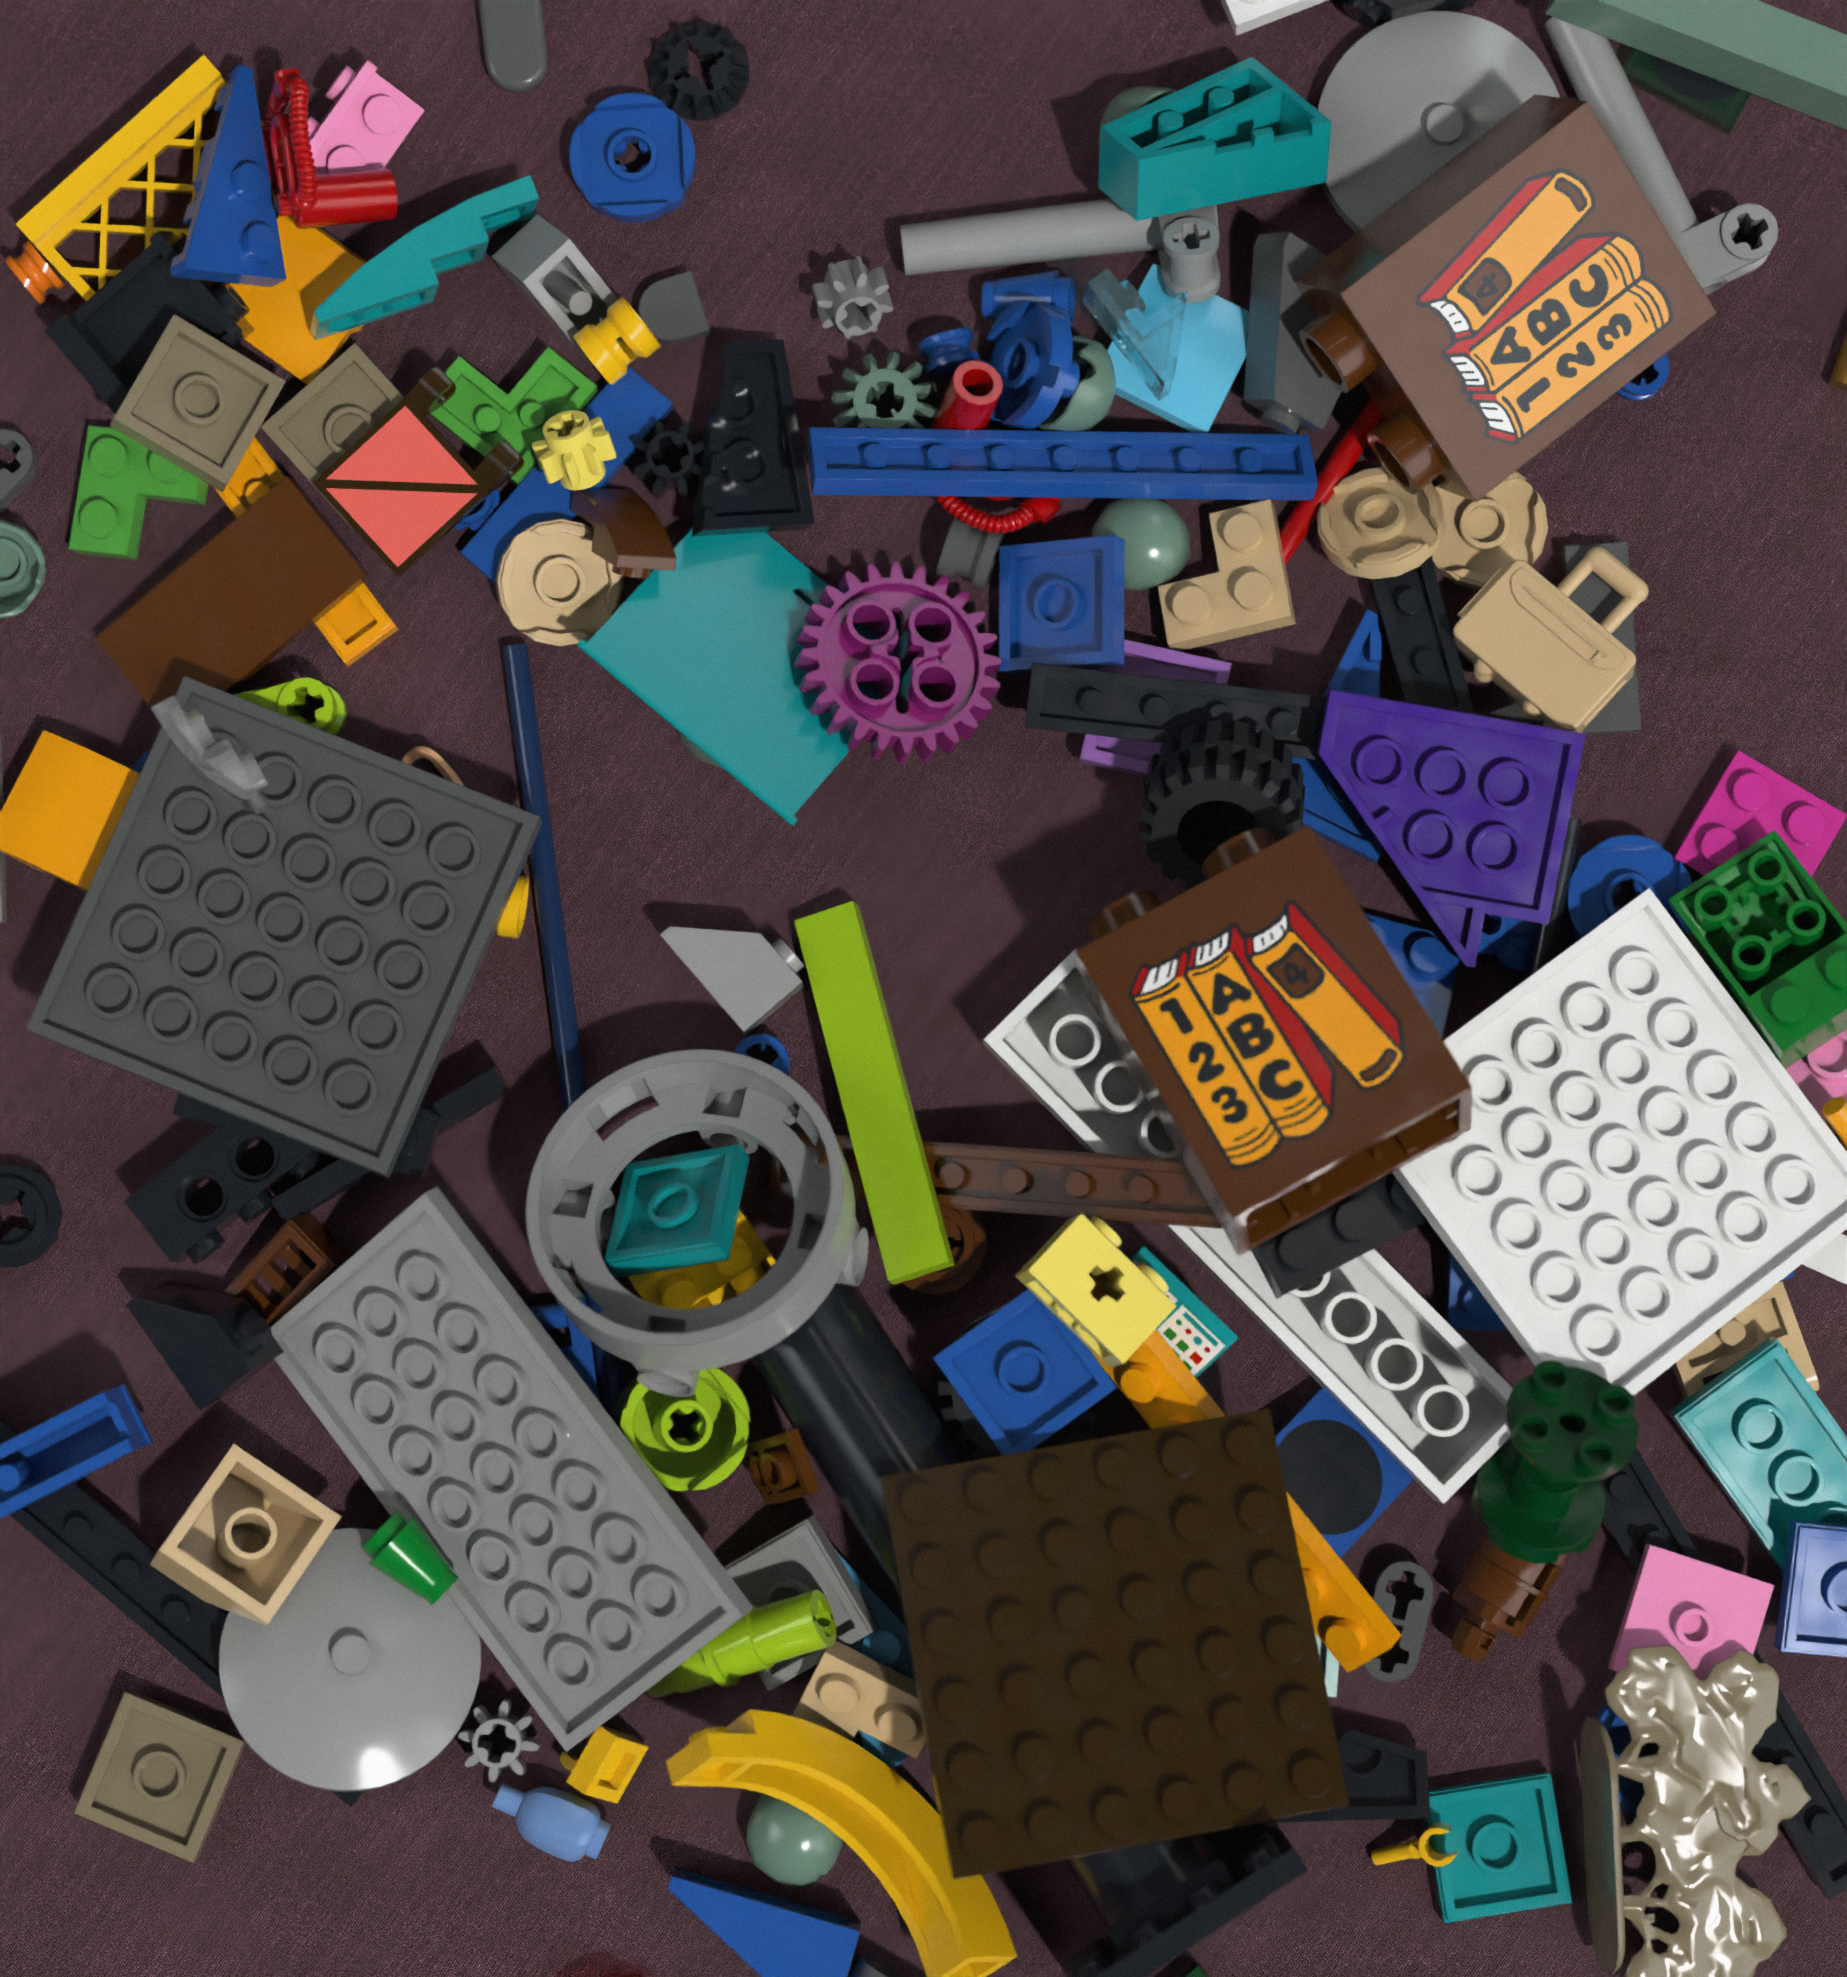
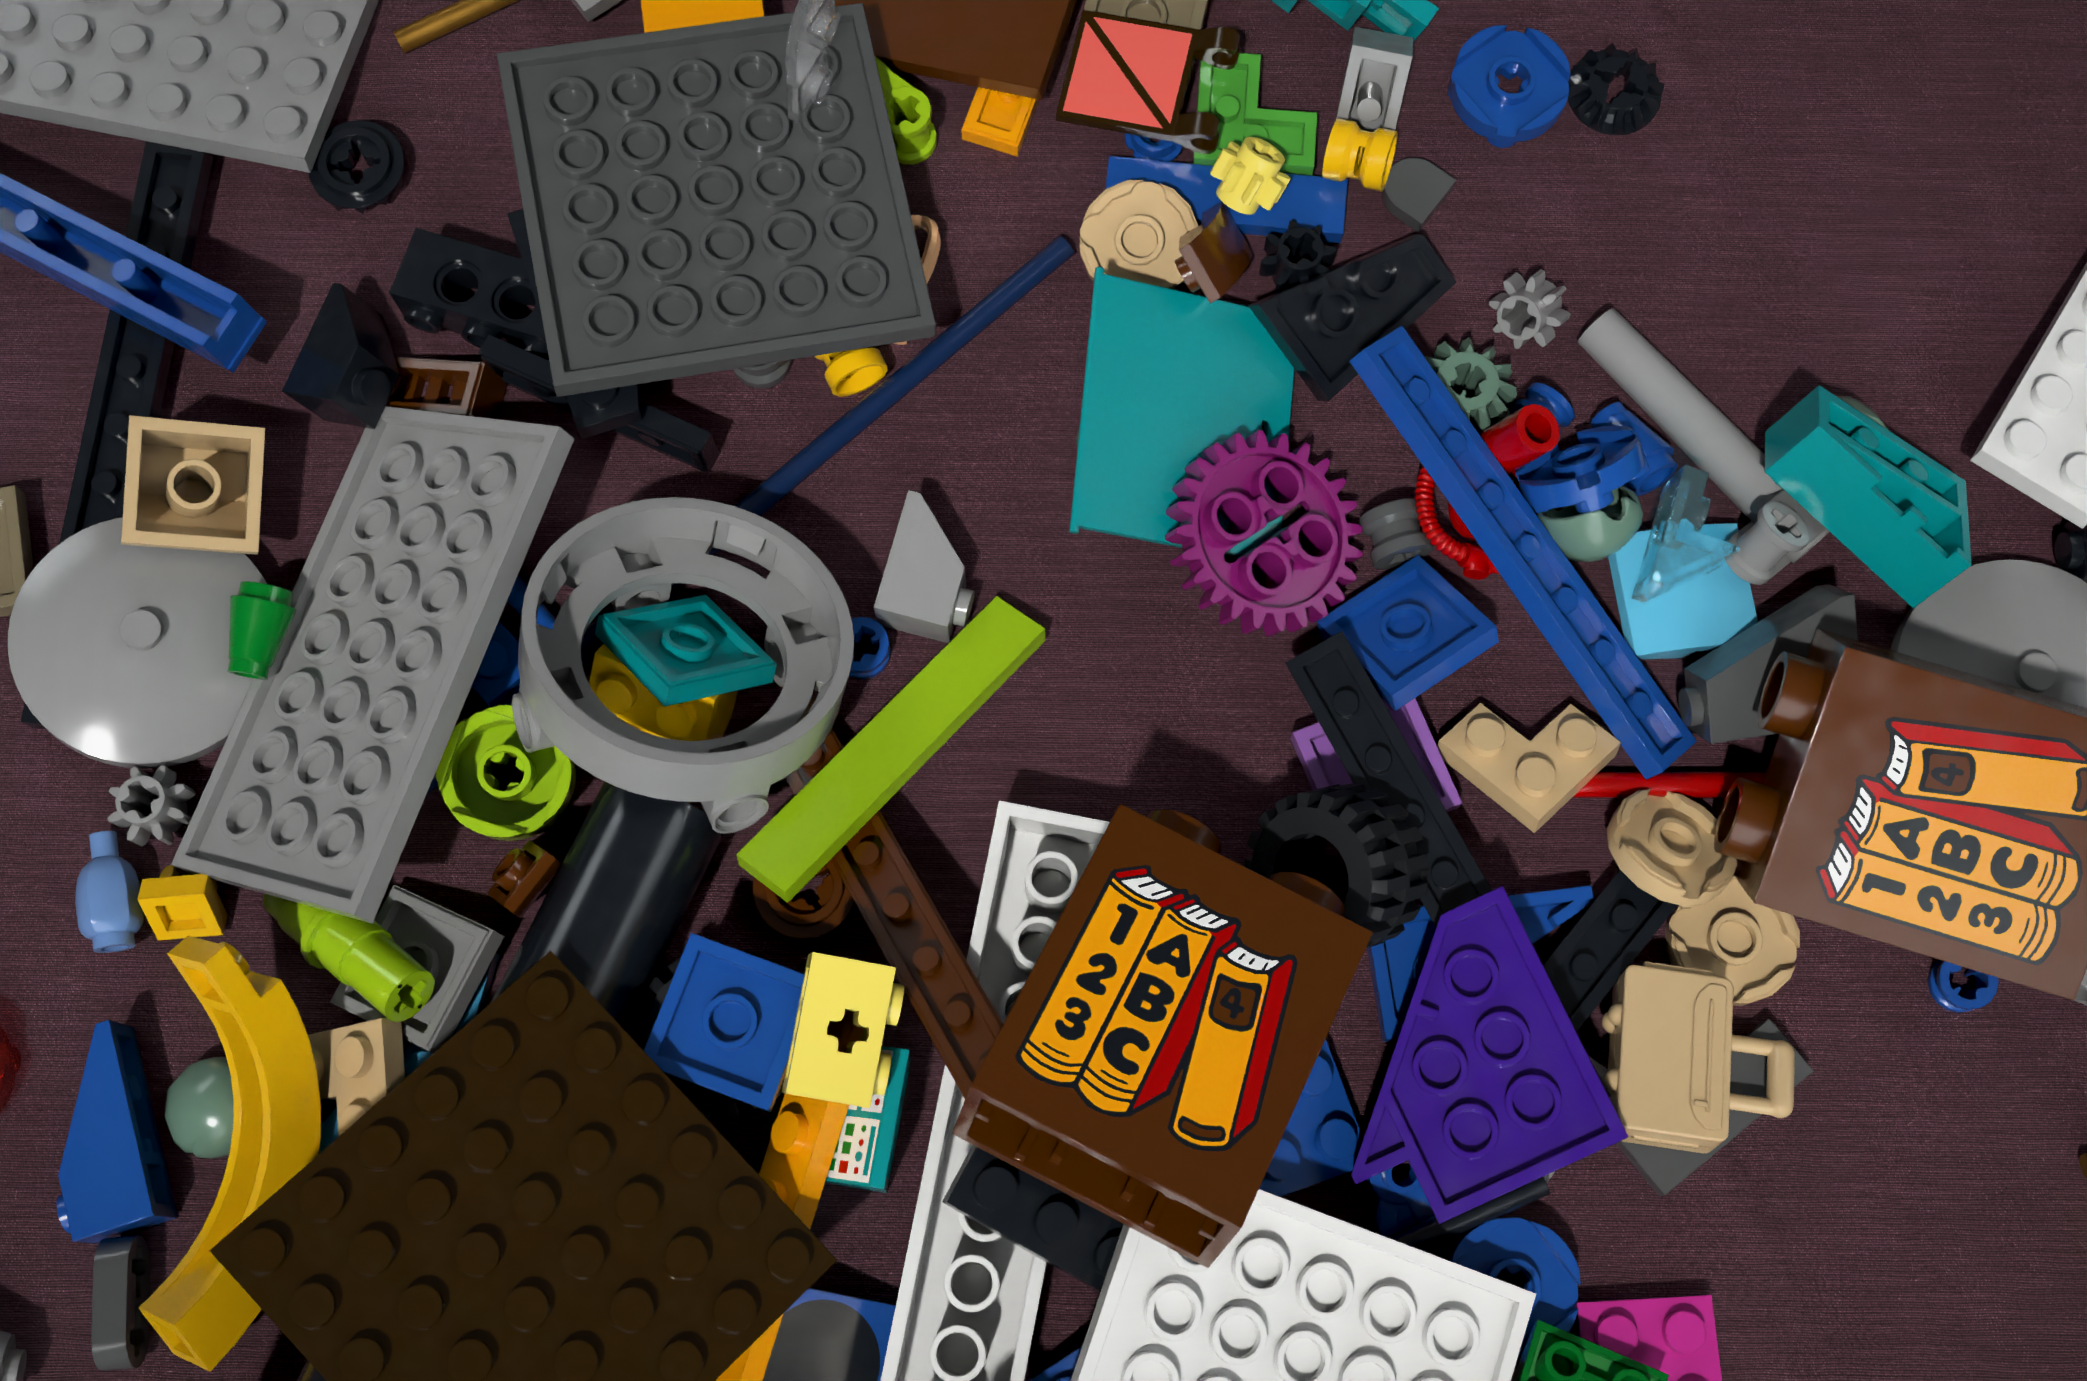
camera: 55 degrees right, 10 degrees down
(1154, 540) = (1513, 673): sand green hair -> none

